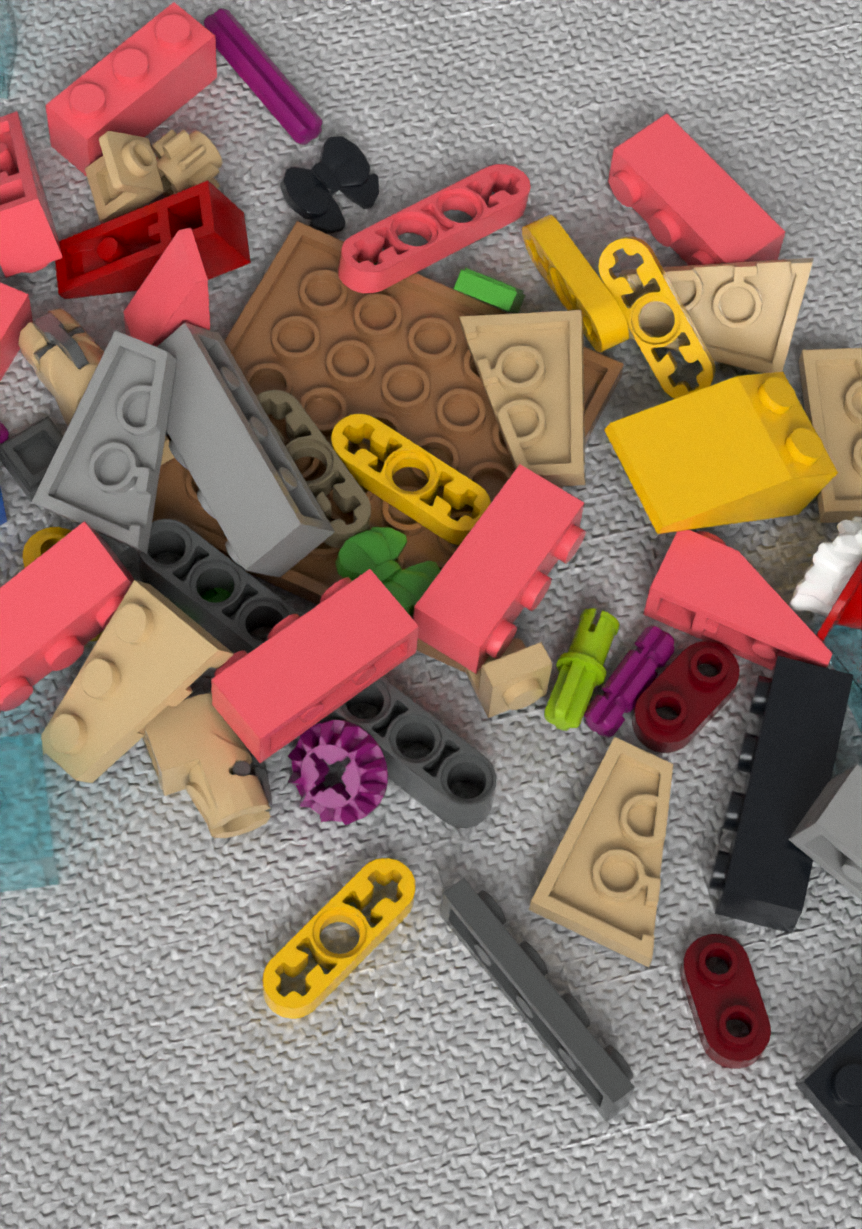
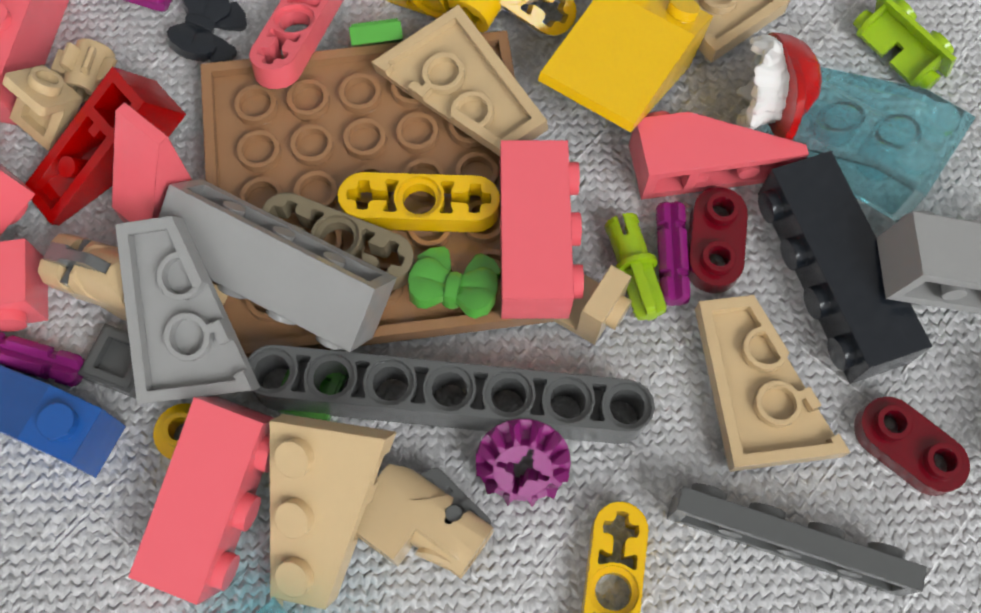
camera: 30 degrees left, 5 degrees up
(313, 664) = (456, 394): coral brick -> none

